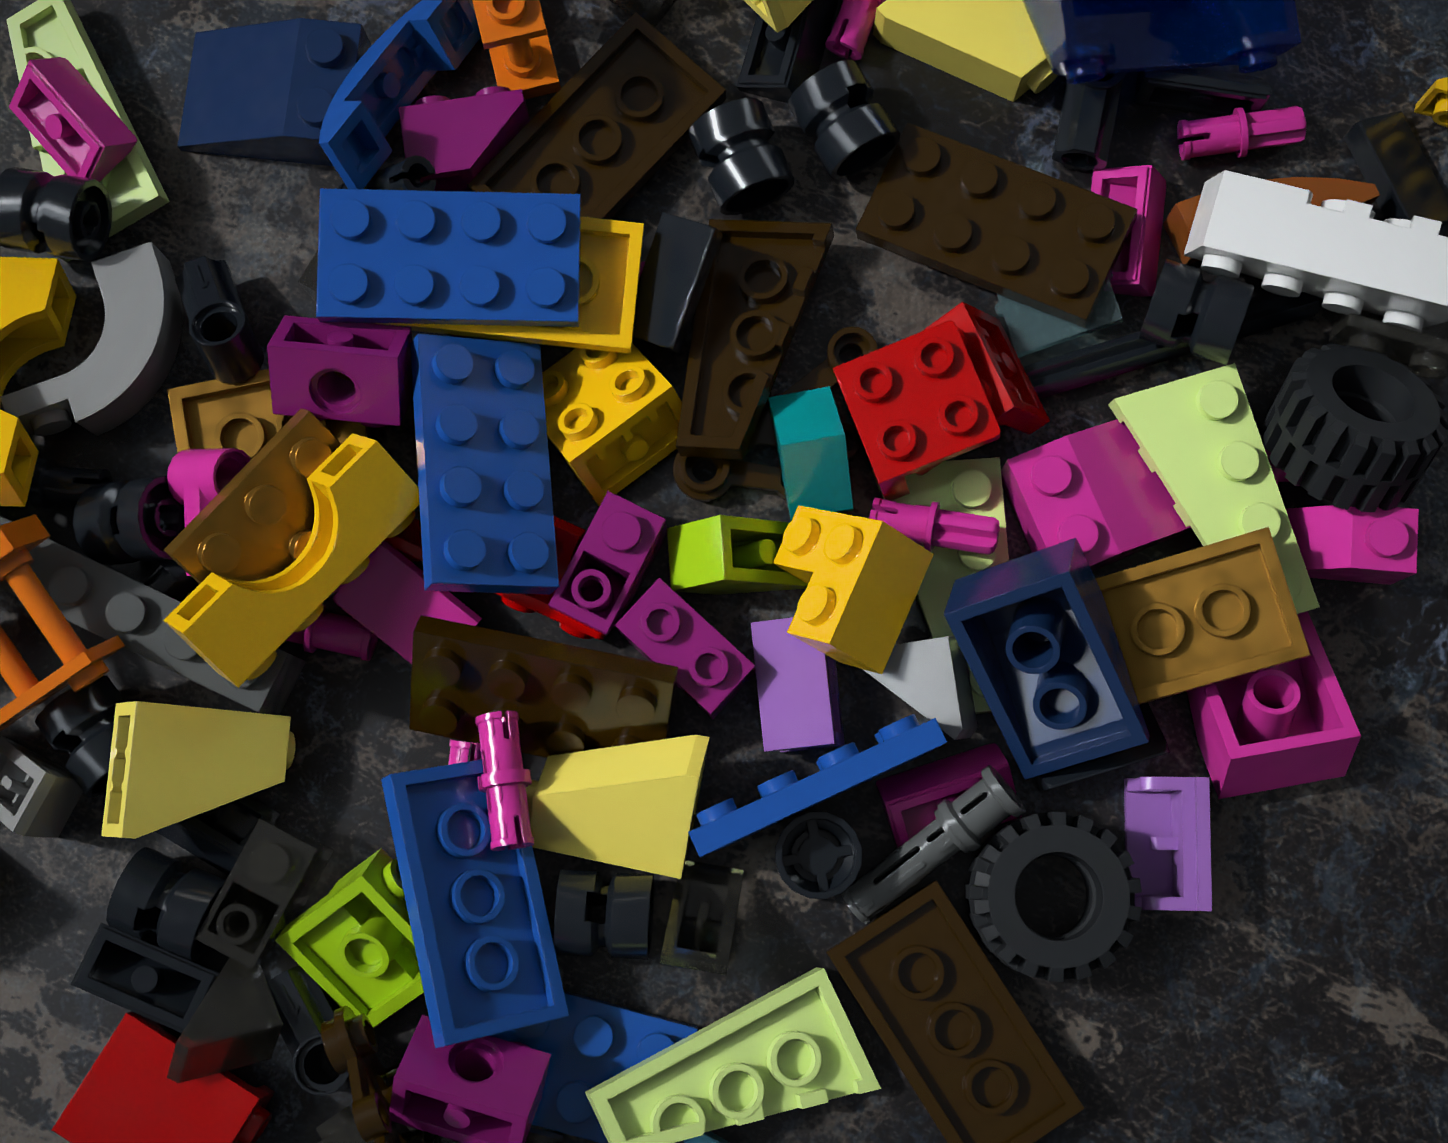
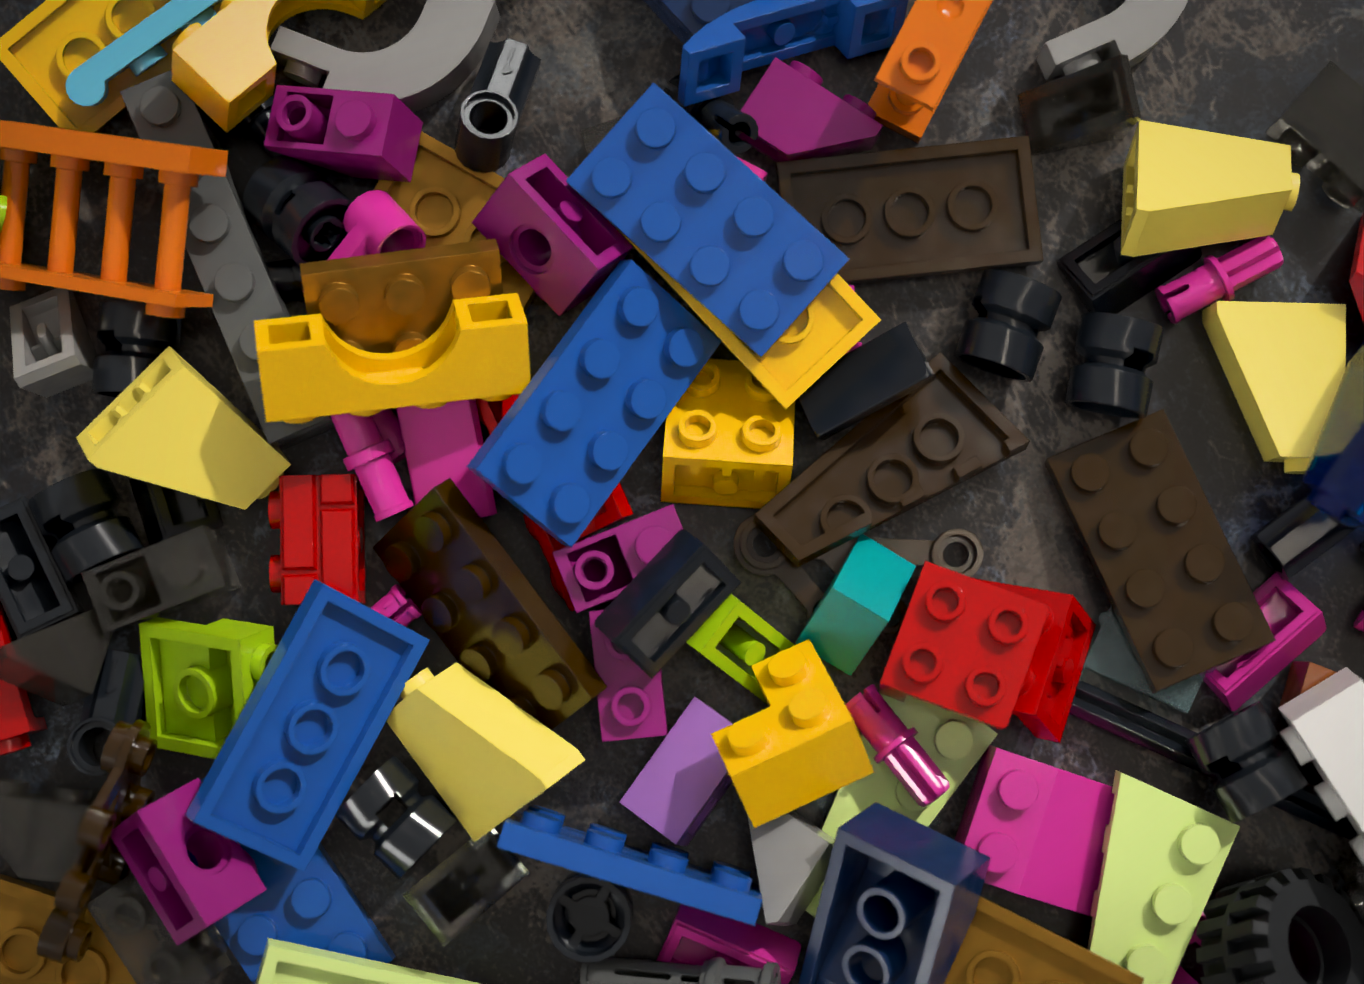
camera: 40 degrees right, 5 degrees up
(118, 430) = (345, 131): none -> magenta slope
(349, 659) = (372, 464): none -> dark pink pin
(356, 749) = (319, 536): none -> red brick
(504, 780) = (405, 658): dark pink pin -> none
(667, 563) = (667, 602): none -> black slope

